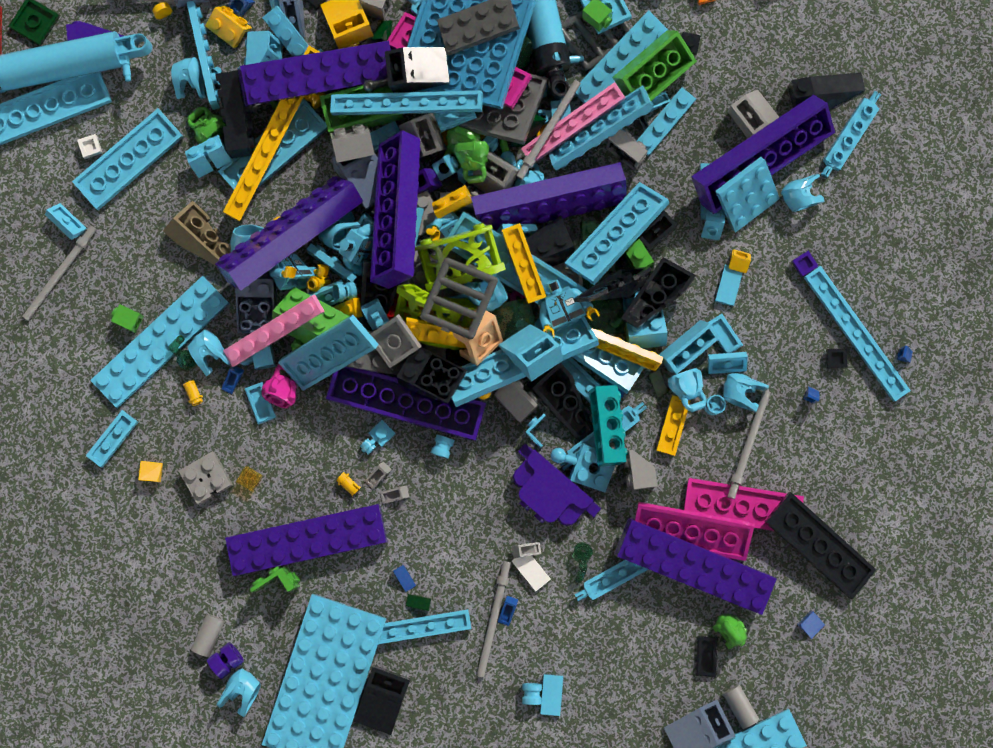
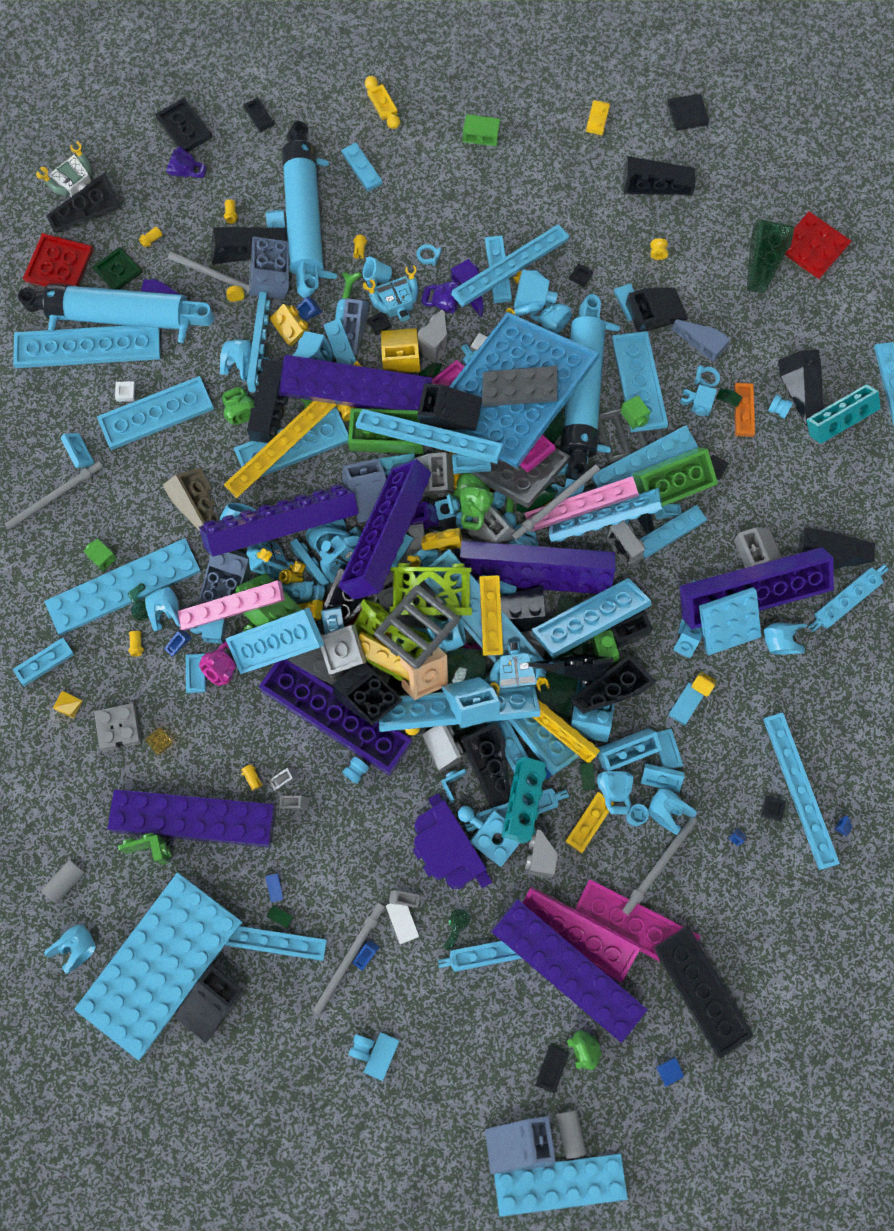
camera: 15 degrees right, 10 degrees down
(208, 151) = (225, 428): medium azure piece -> none
(219, 664) = (64, 916): dark purple wheel -> none
(352, 143) = (365, 457): light grey slope -> none
(370, 86) = (401, 412): pearl dark grey piece -> none
(381, 433) = (300, 739): medium azure plate -> none
(804, 264) = (767, 706): dark purple plate -> none

